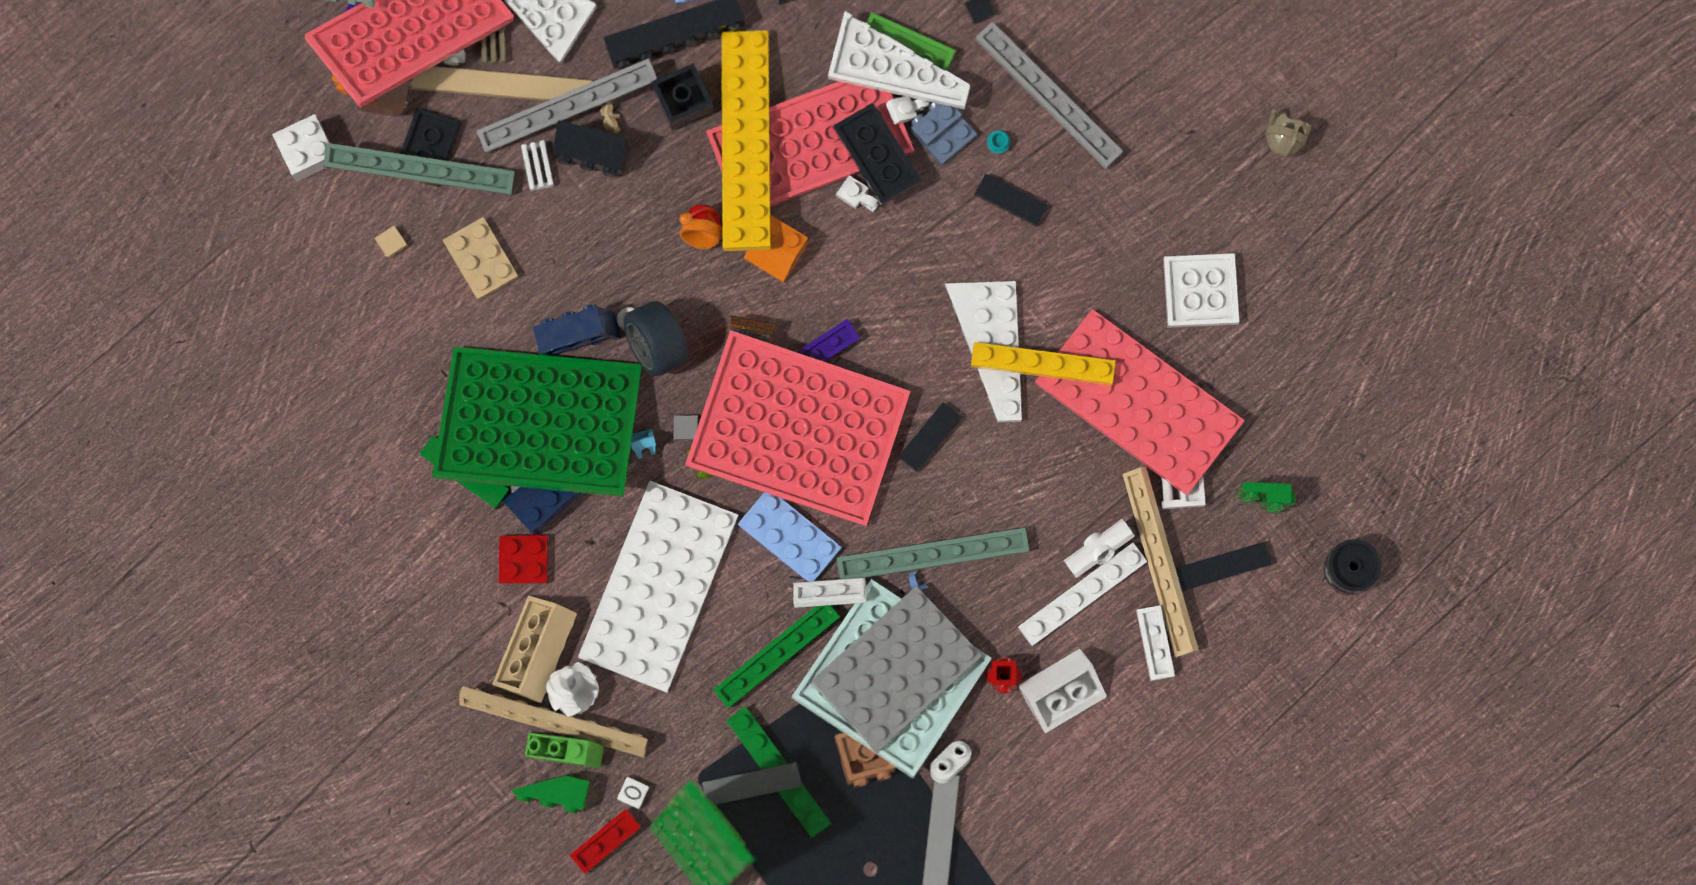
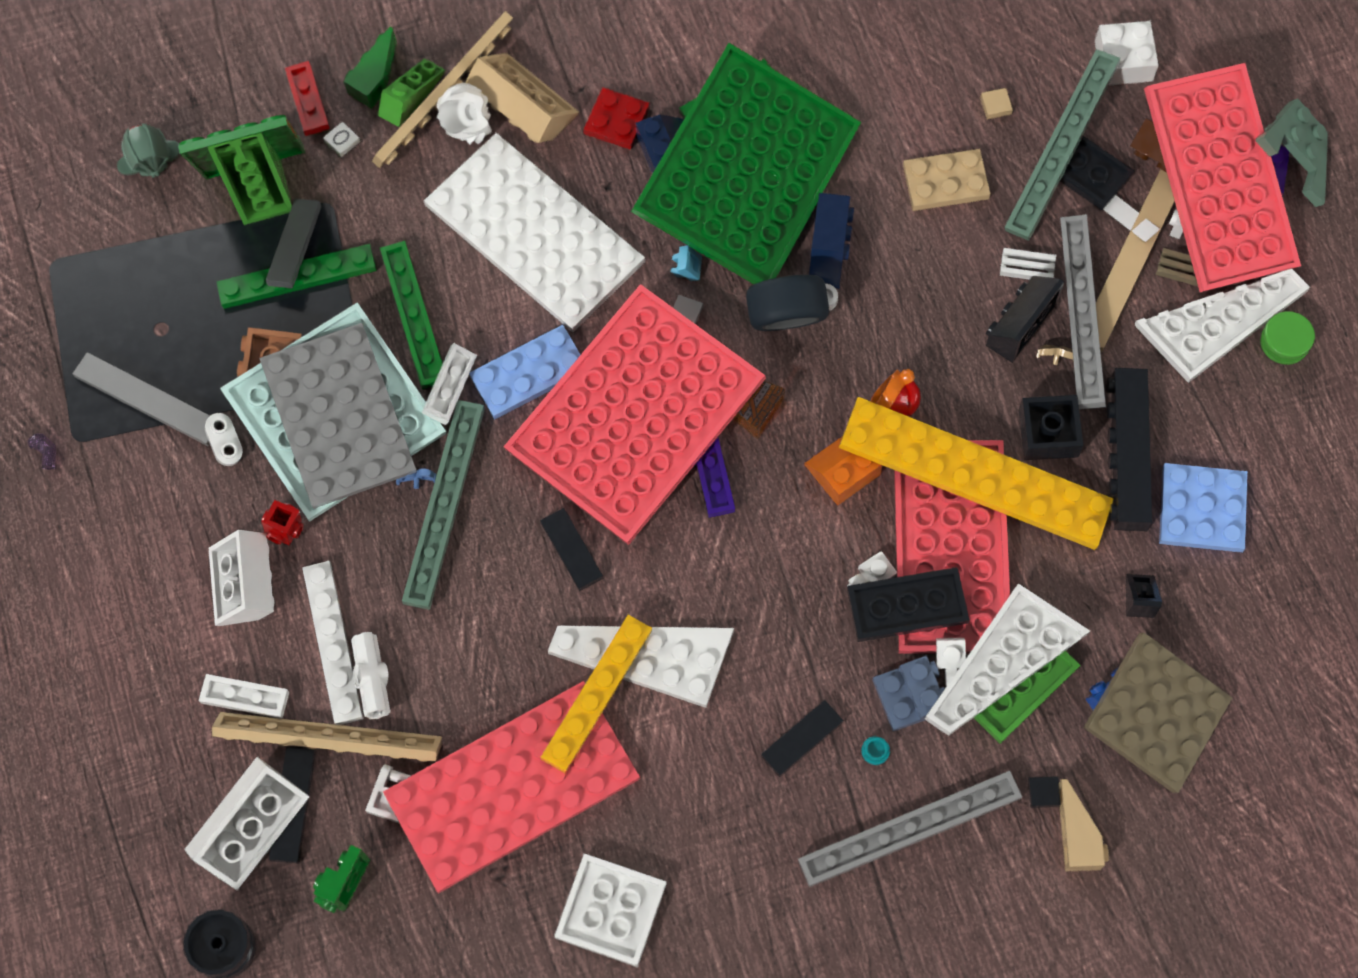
camera: 115 degrees right, 10 degrees down
(462, 100) = (1127, 216): none -> white sticker
(1253, 591) = (246, 823): none -> white slope

